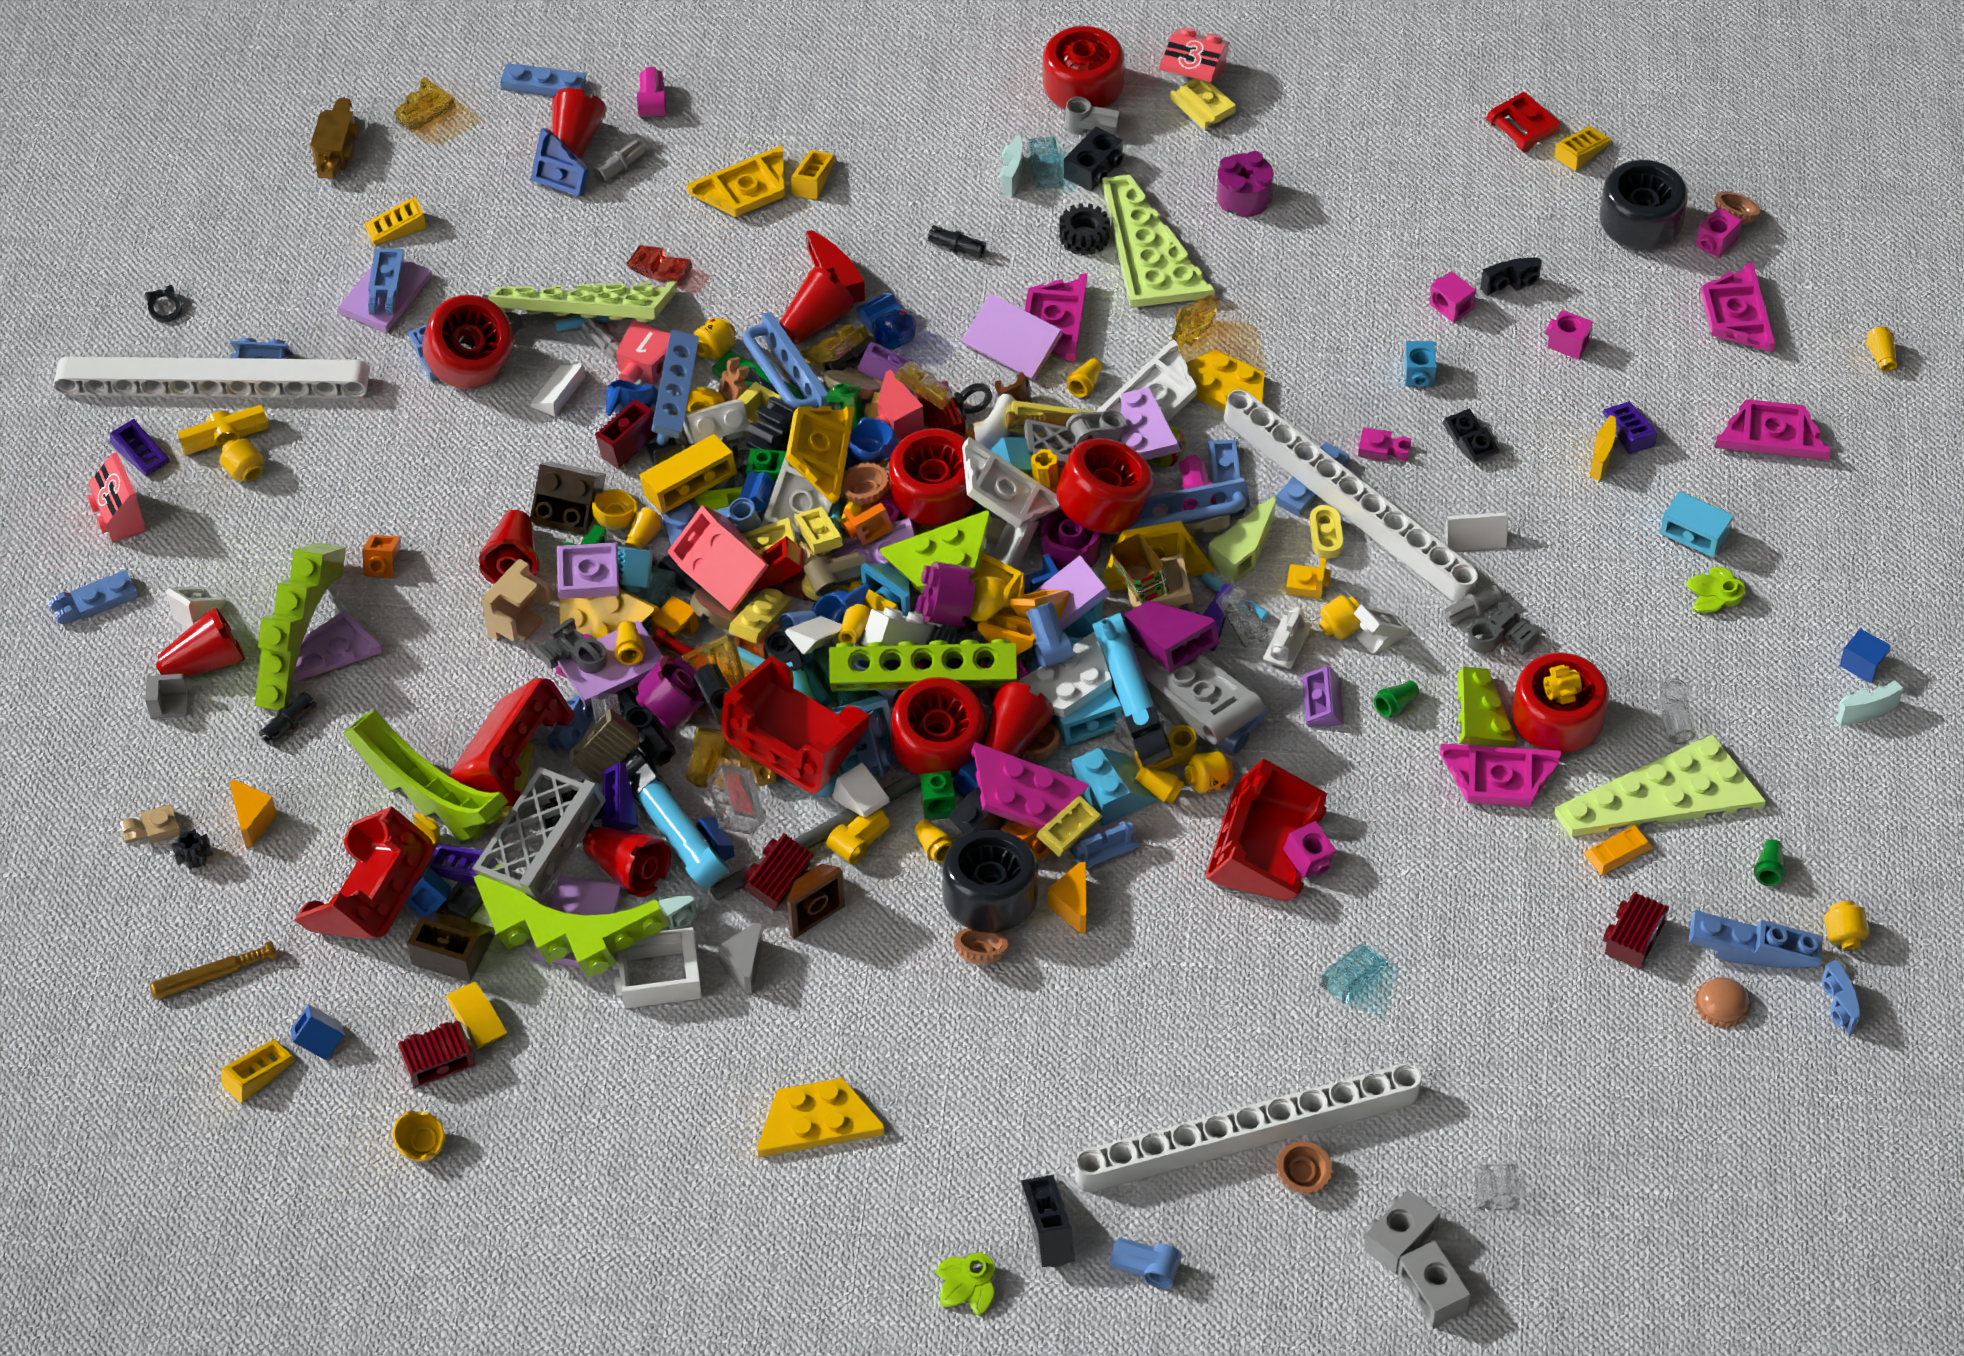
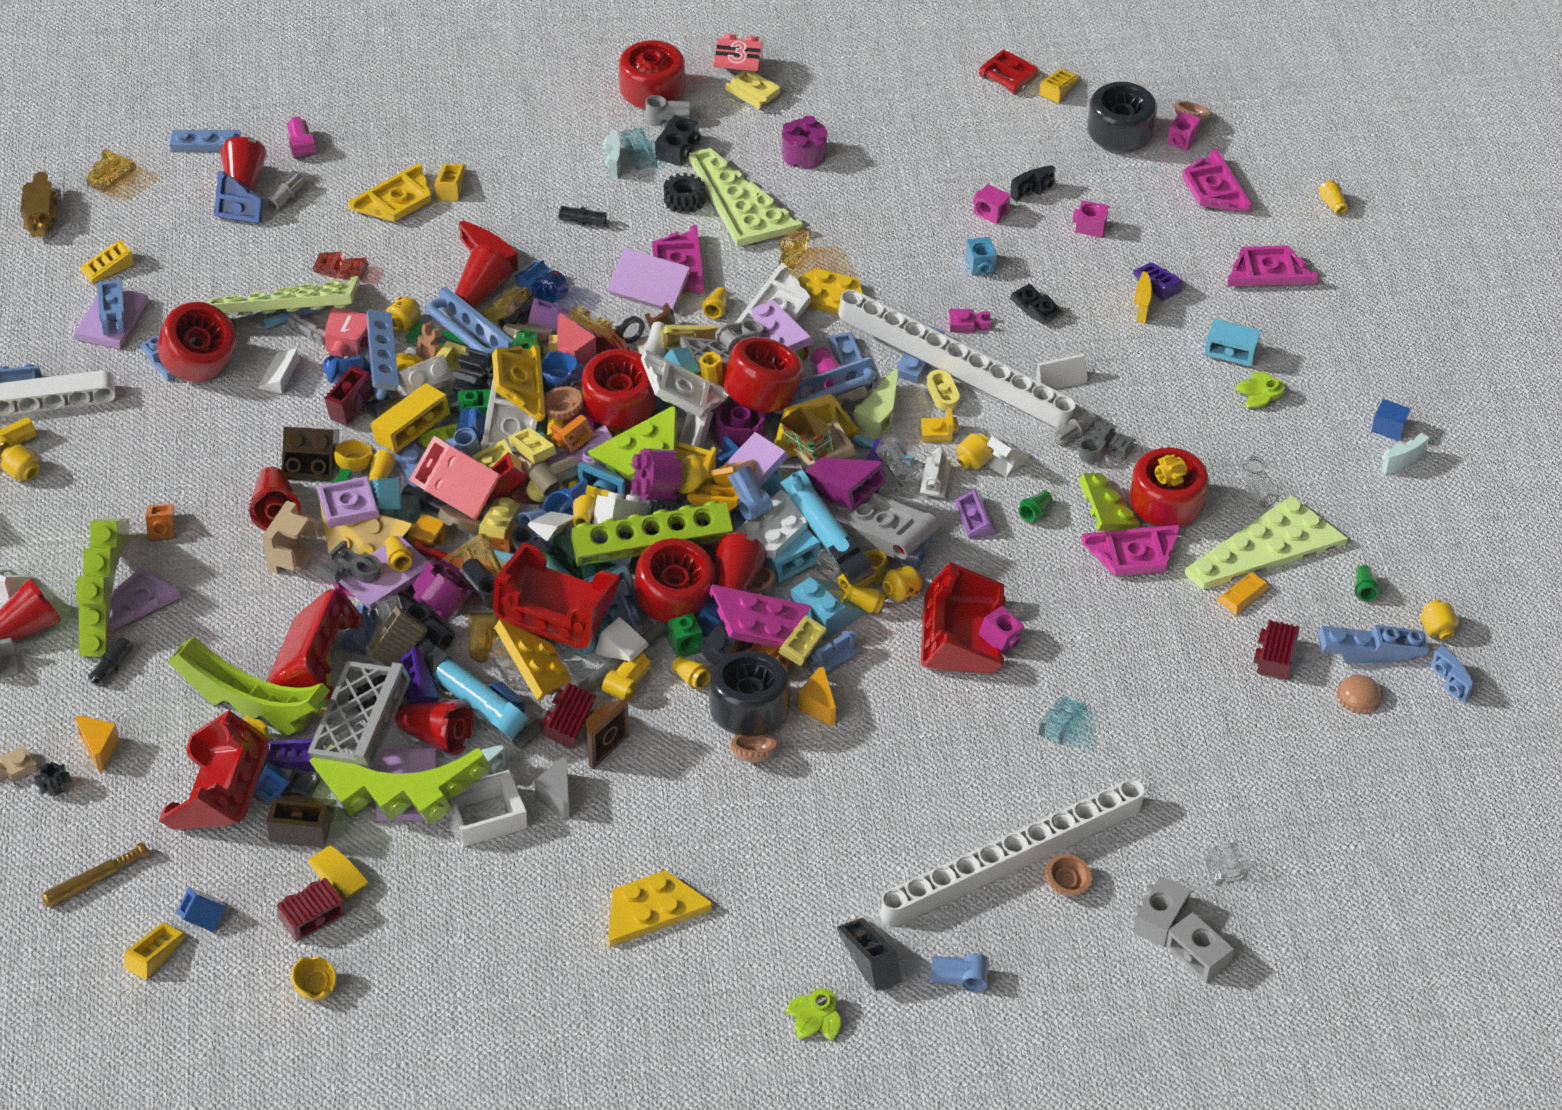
camera: 15 degrees left, 5 degrees down
(754, 799) = (534, 659): none -> yellow wing

